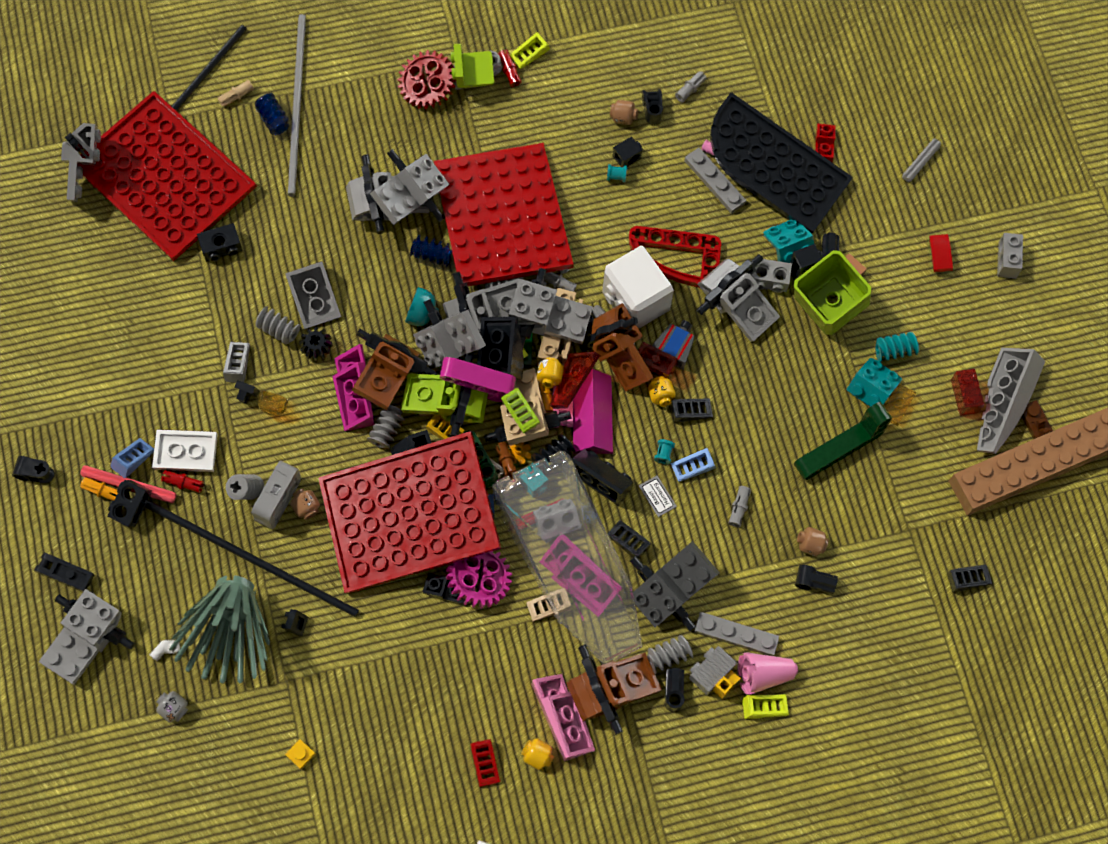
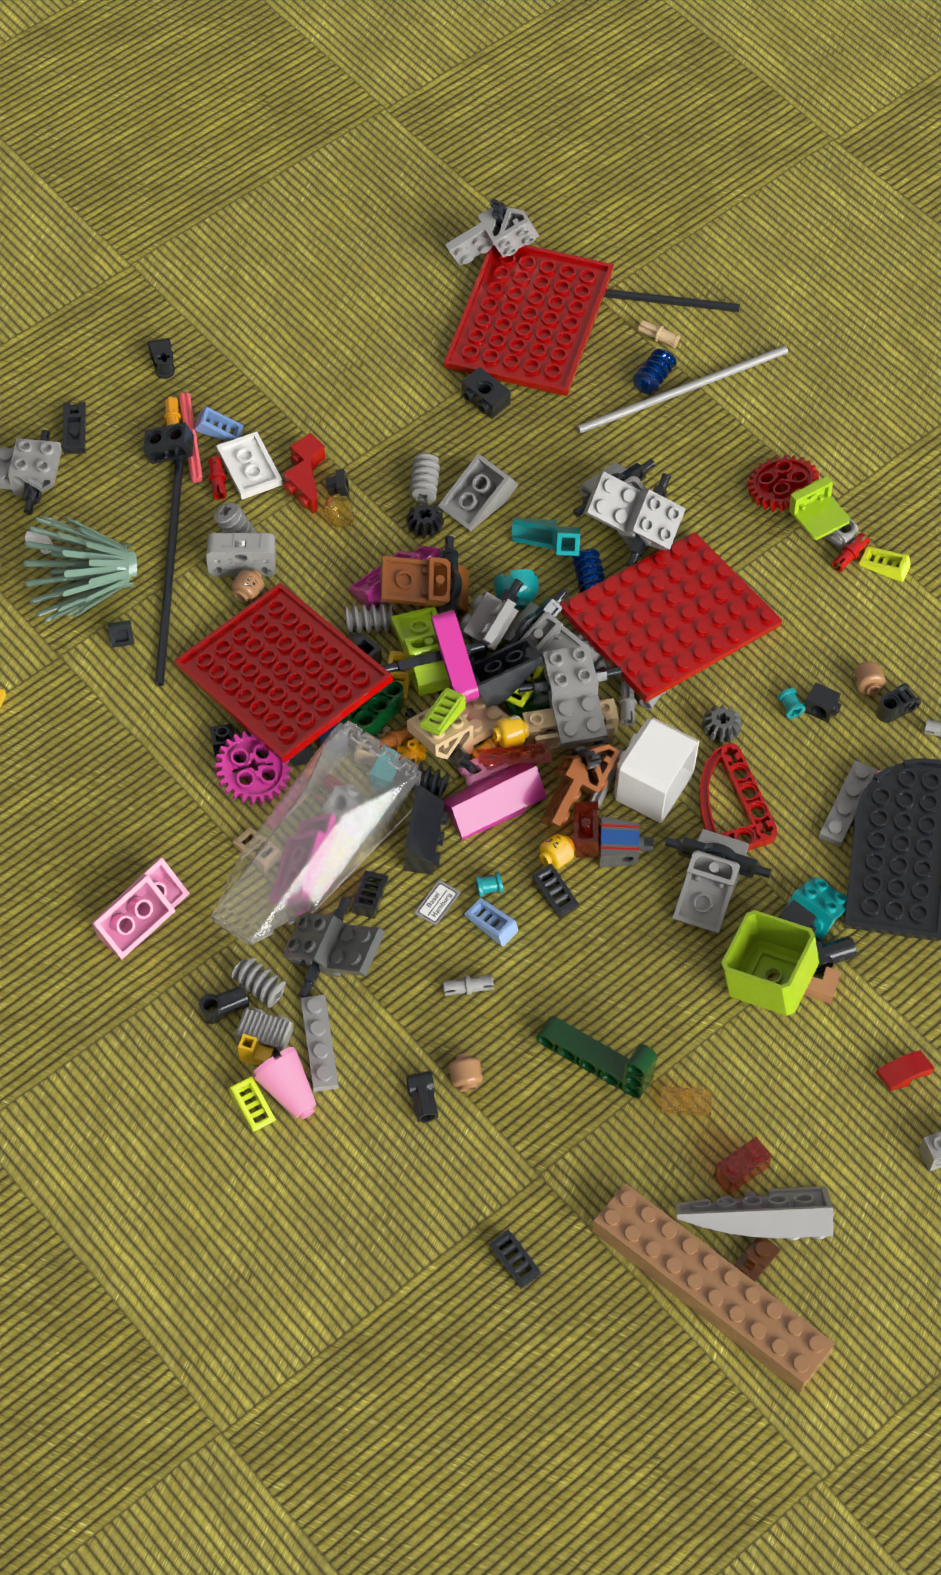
camera: 65 degrees right, 10 degrees down
(225, 417) = (299, 479): none -> red arch
(230, 373) = (355, 471): light grey slope -> none
(381, 263) = (547, 535): none -> teal arch
(483, 744) = (54, 856): red slope -> none
(537, 754) = (89, 903): yellow head -> none
(610, 227) = (721, 724): none -> dark grey gear
(611, 686) = (192, 934): dark orange piece -> none
(770, 270) = (769, 899): light grey brick -> none
(874, 383) = (697, 1062): teal bracket -> none
(896, 344) = (752, 1067): teal piece -> none

